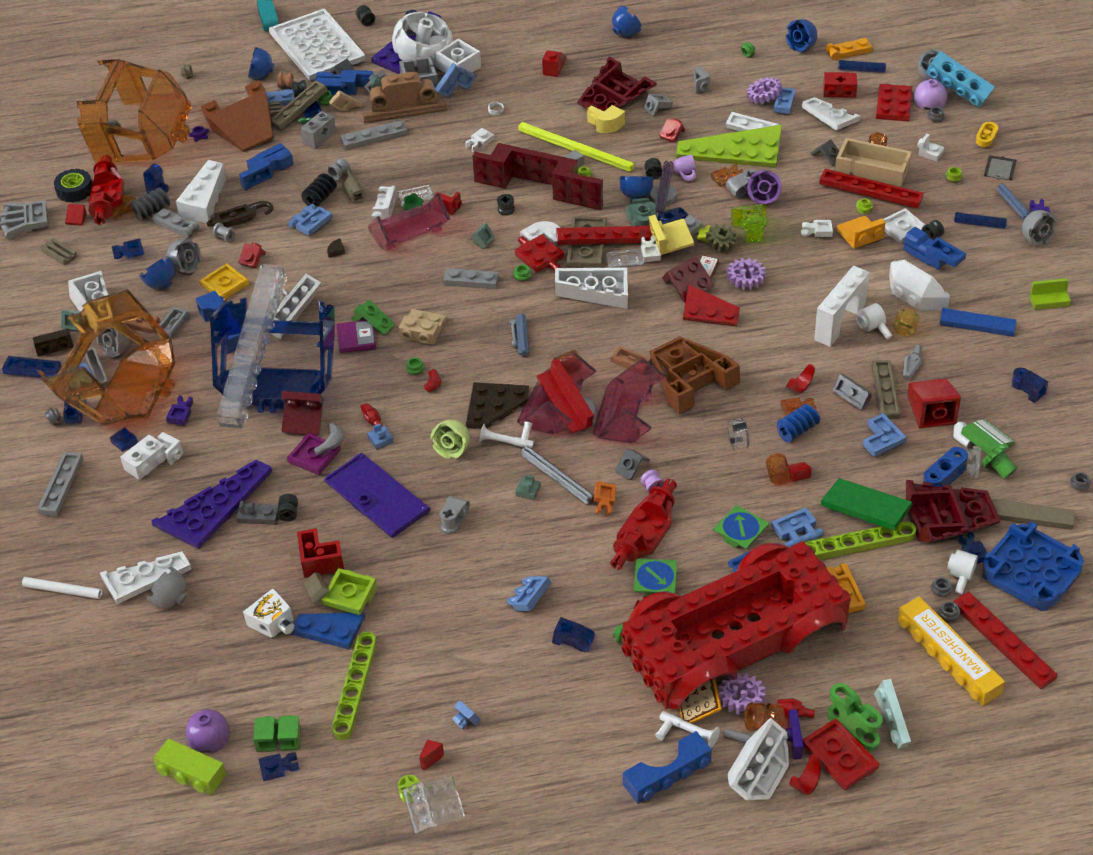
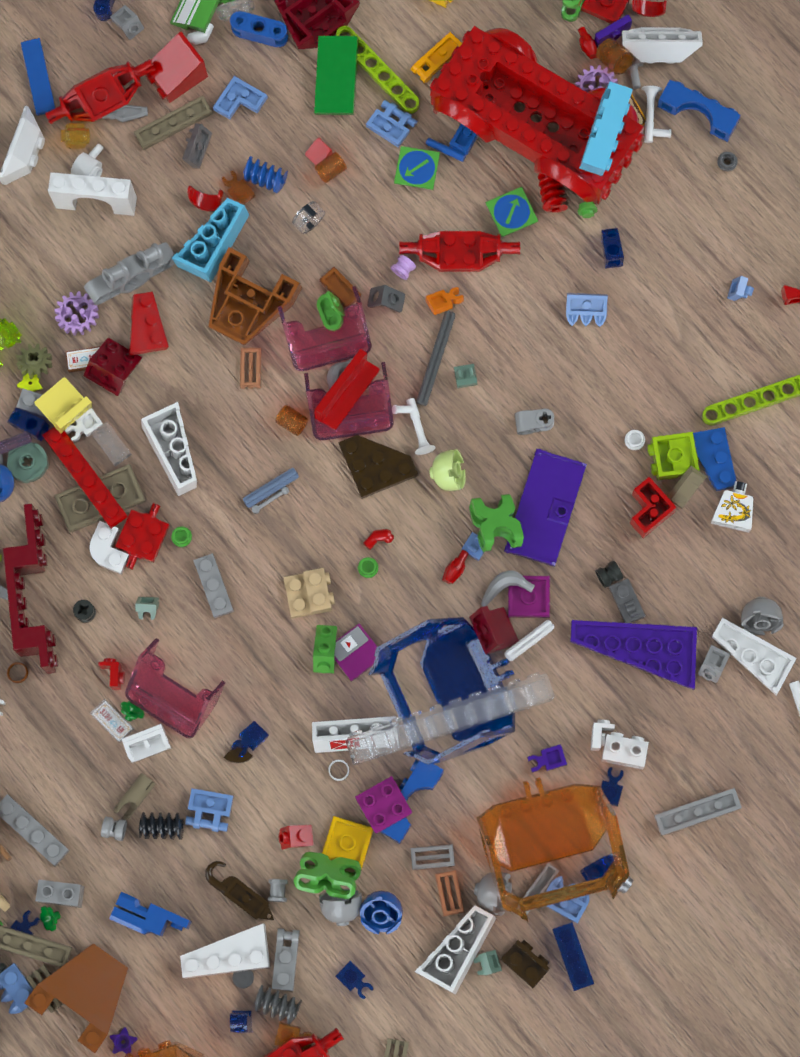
camera: 115 degrees left, 30 degrees up
(160, 543) = (713, 664): none -> light grey bracket
(207, 252) = (327, 875): none -> bright green piece
(225, 293) = (383, 805): none -> magenta bracket
(276, 430) = (529, 640): none -> white axle
(341, 256) = (250, 737): none -> clear blue plate
(385, 446) = (496, 522): none -> bright green piece
(386, 576) = (634, 440): none -> white plate
(598, 764) = (727, 156): none -> flat silver plate
(651, 419) = (330, 311): none -> bright green bracket
(663, 439) = (339, 286): none -> dark orange tile
(675, 635) = (606, 128): none -> medium azure wedge
(756, 368) = (207, 248): none -> medium azure wedge
(757, 309) = (130, 273): none -> light grey piece
(933, 344) = (101, 93): none -> red plate
(1000, 387) = (127, 22): none -> light grey bracket

